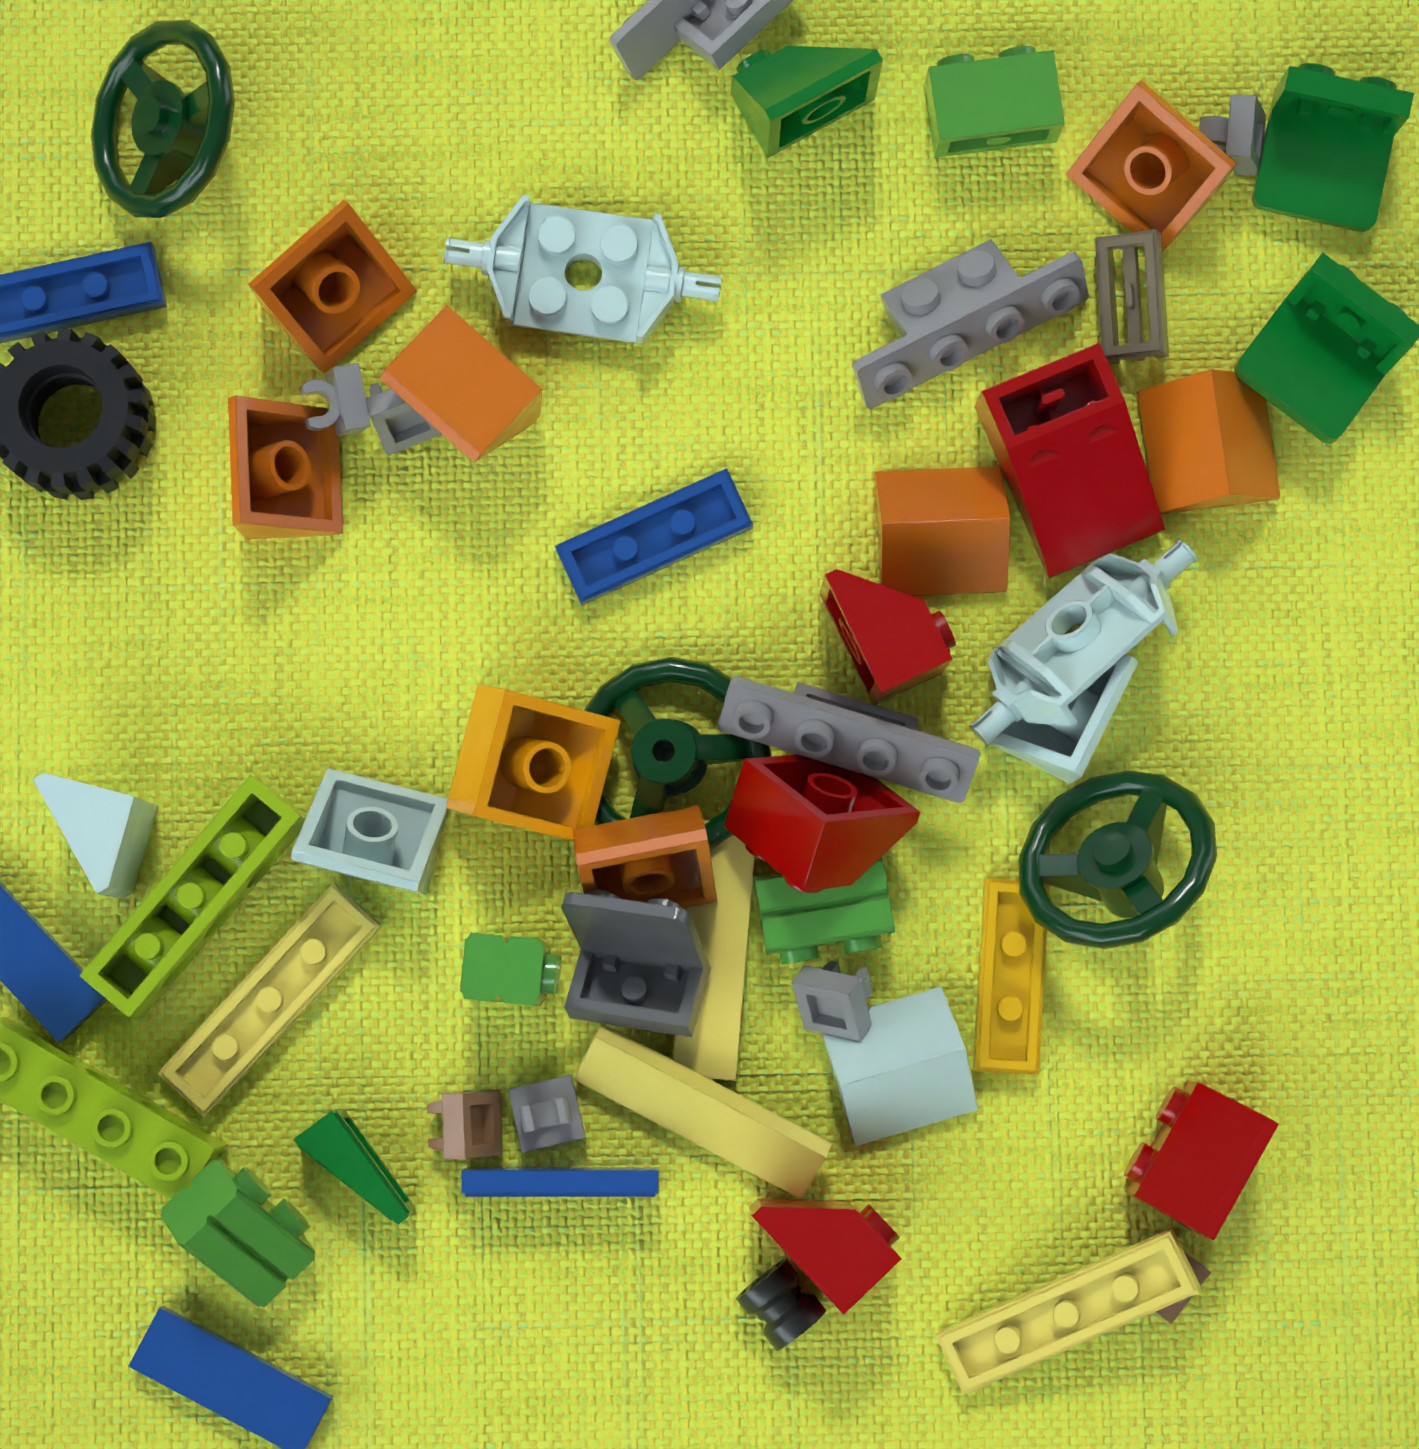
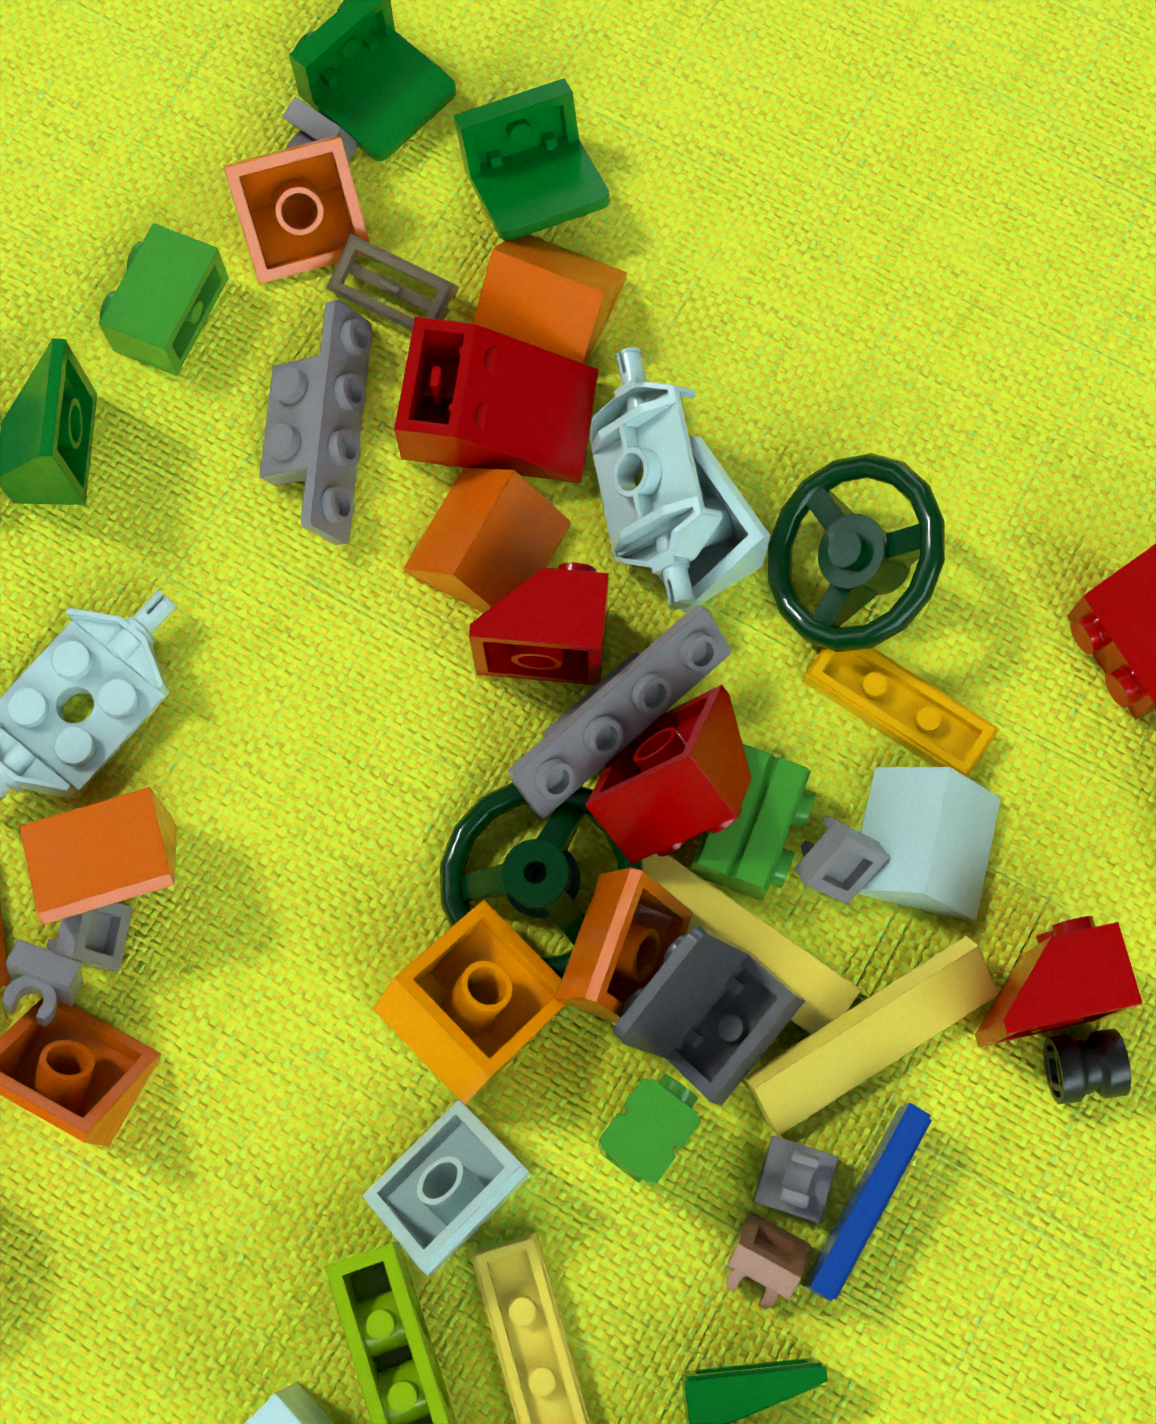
camera: 55 degrees left, 10 degrees down
(654, 536) = (340, 782): blue tile -> none

